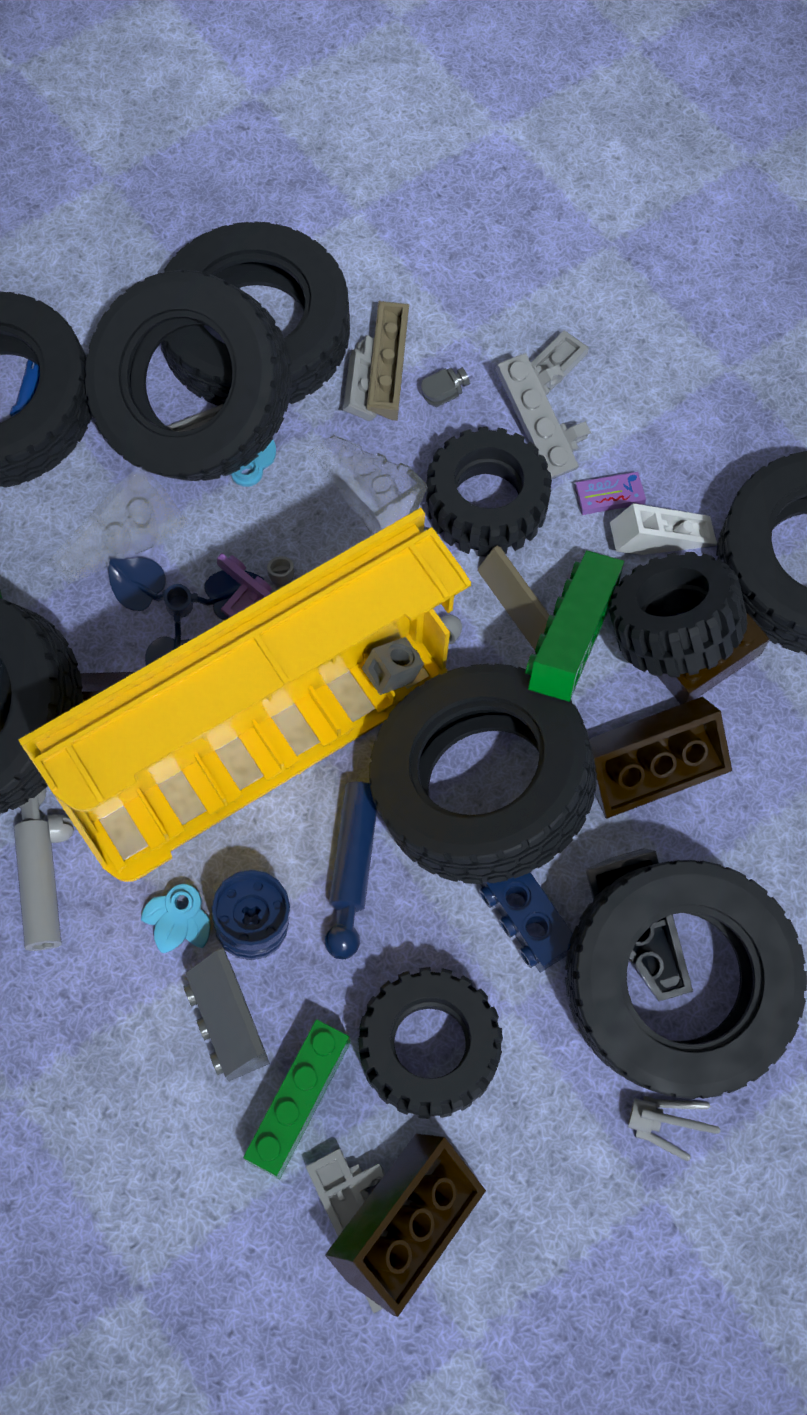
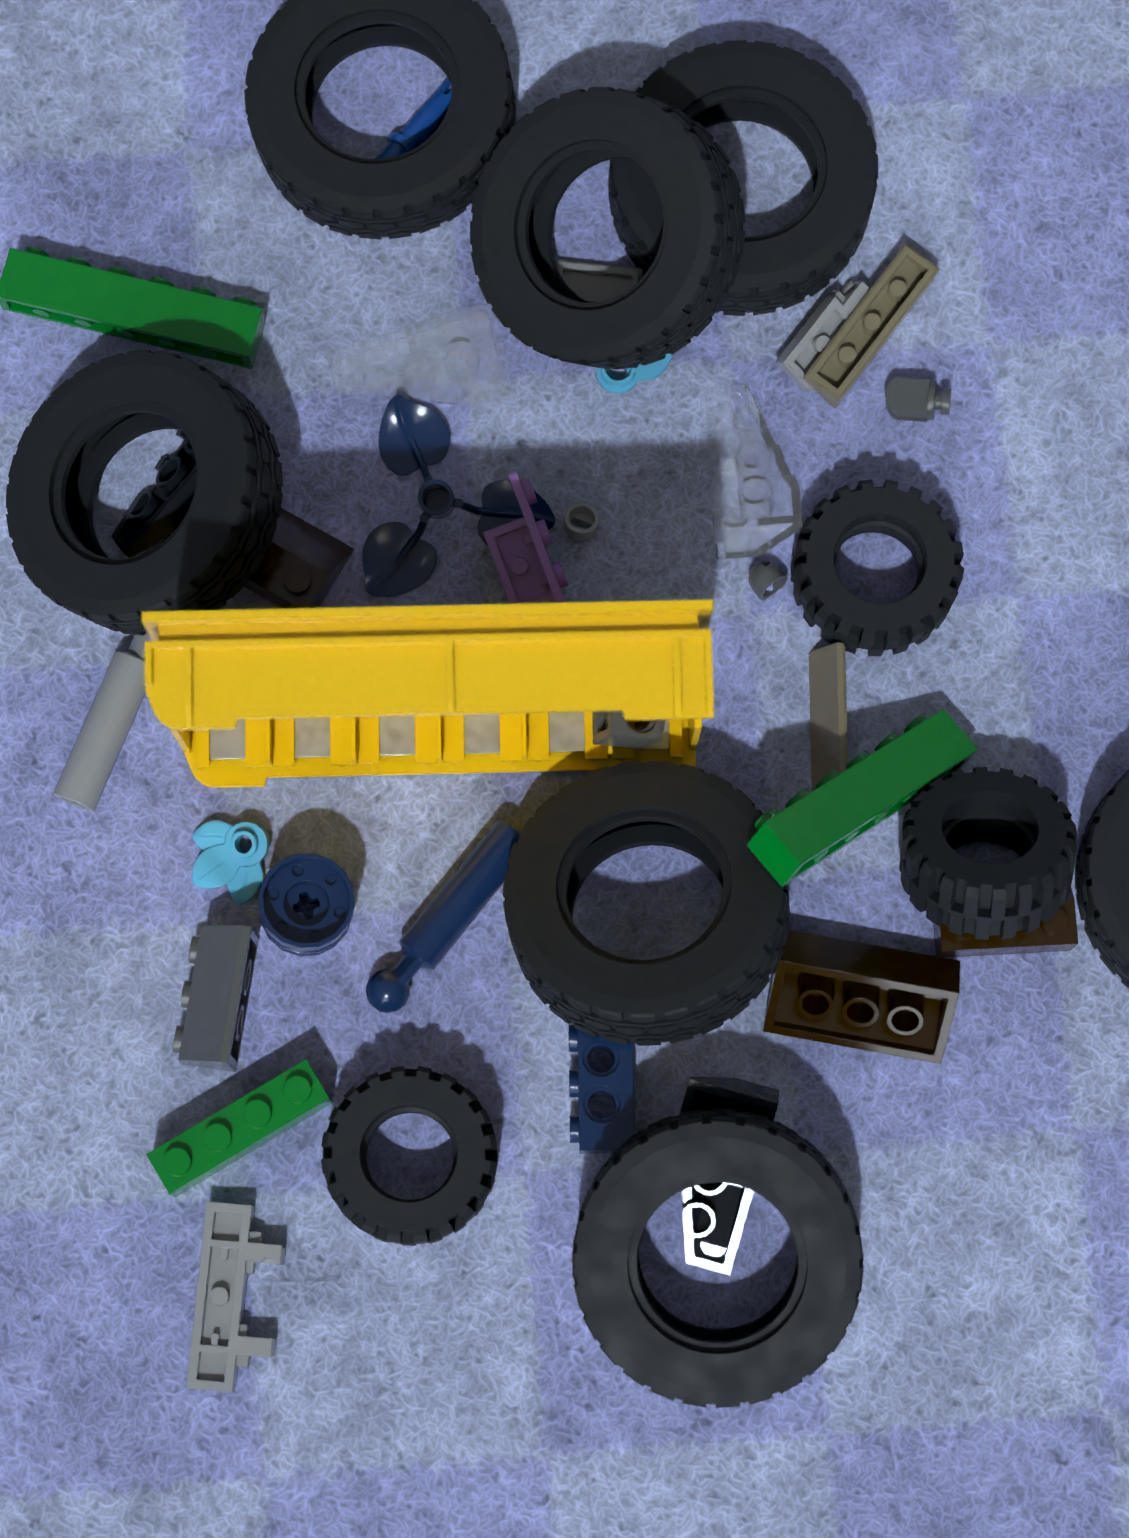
camera: 30 degrees right, 10 degrees up
(406, 1222) = (272, 1321): dark brown slope -> none
(454, 625) = (732, 703): light grey hinge -> none
(527, 393) = (1004, 470): light grey hinge -> none
(563, 351) = (1062, 448): light grey hinge -> none
(609, 493) = (1025, 651): medium lavender tile -> none
(648, 1115) = (590, 1373): light grey plant -> none
(660, 530) = (1052, 736): white slope -> none

